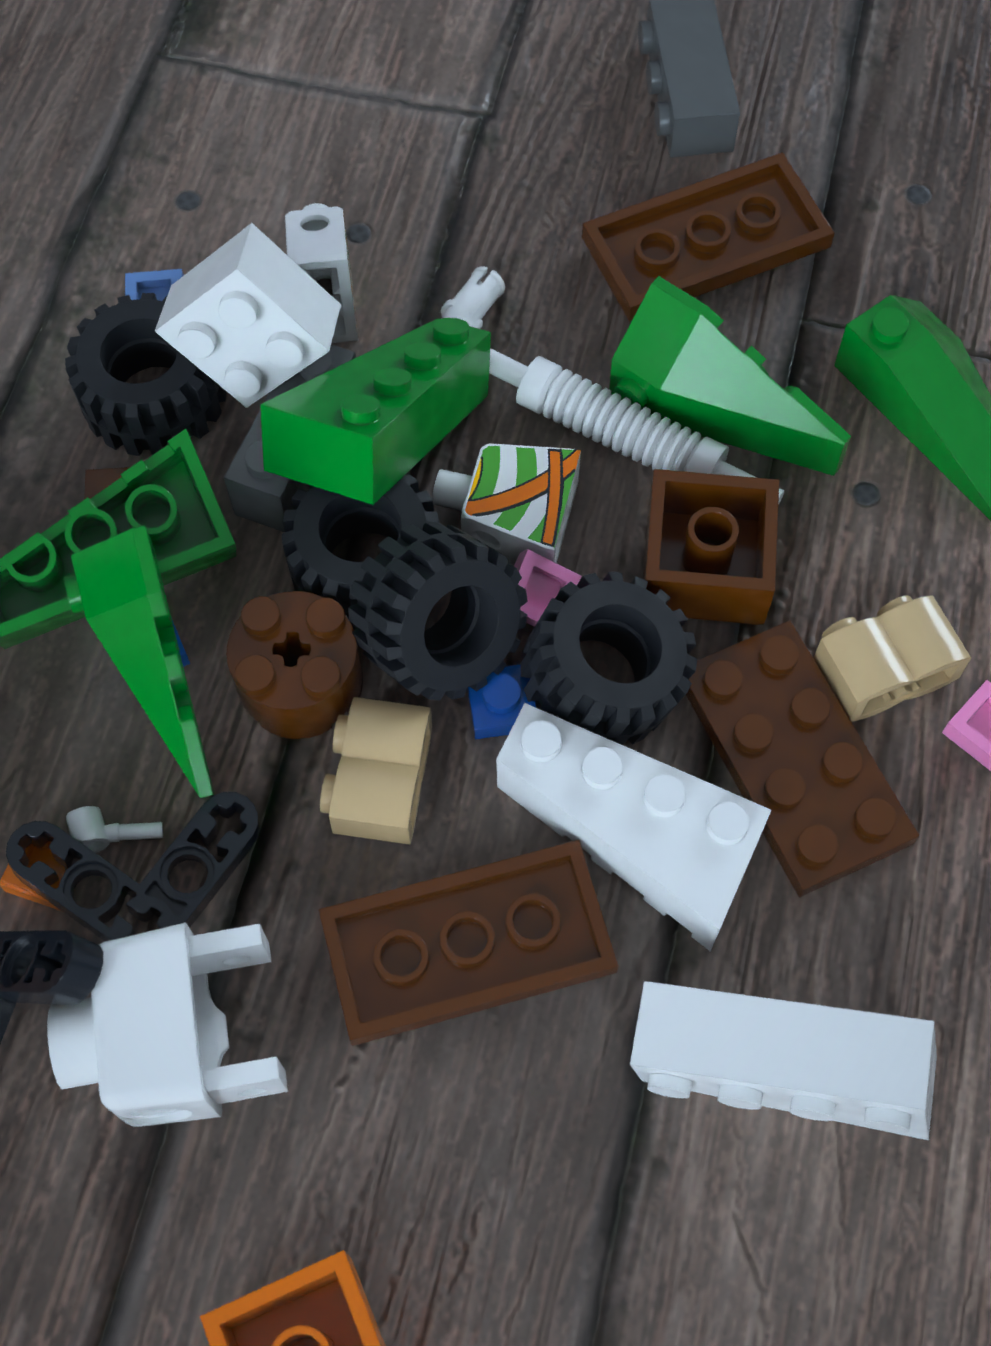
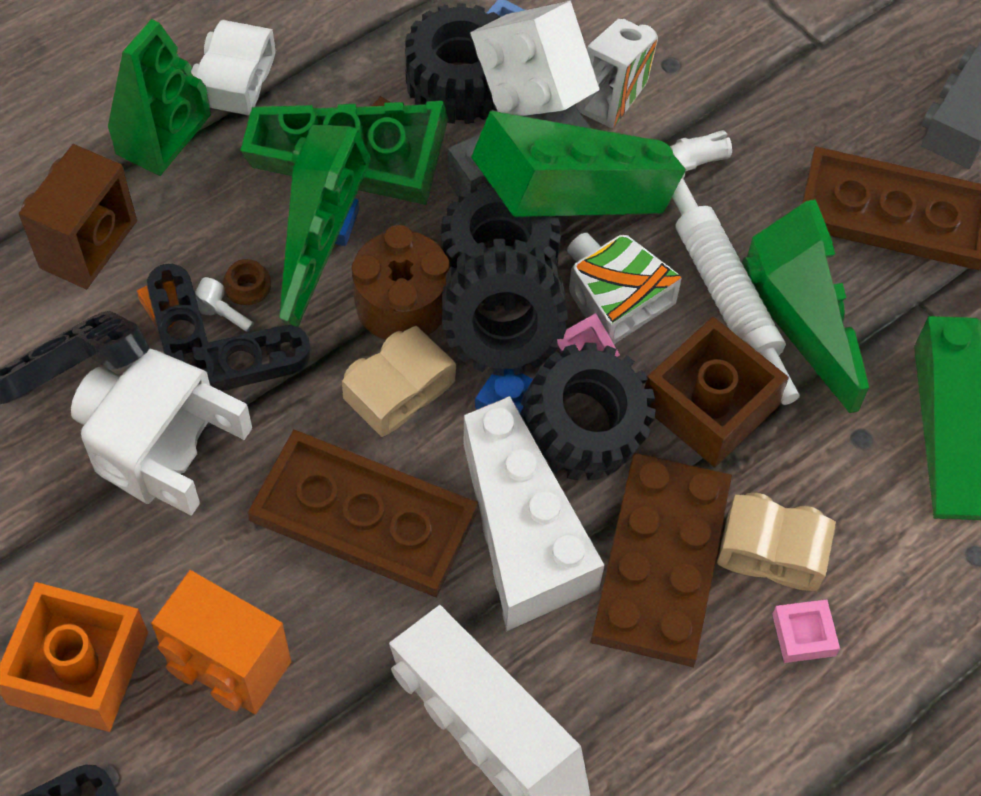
camera: 35 degrees right, 5 degrees down
(107, 770) = (244, 272): none -> reddish brown plate
(459, 1211) = (221, 643): none -> orange brick

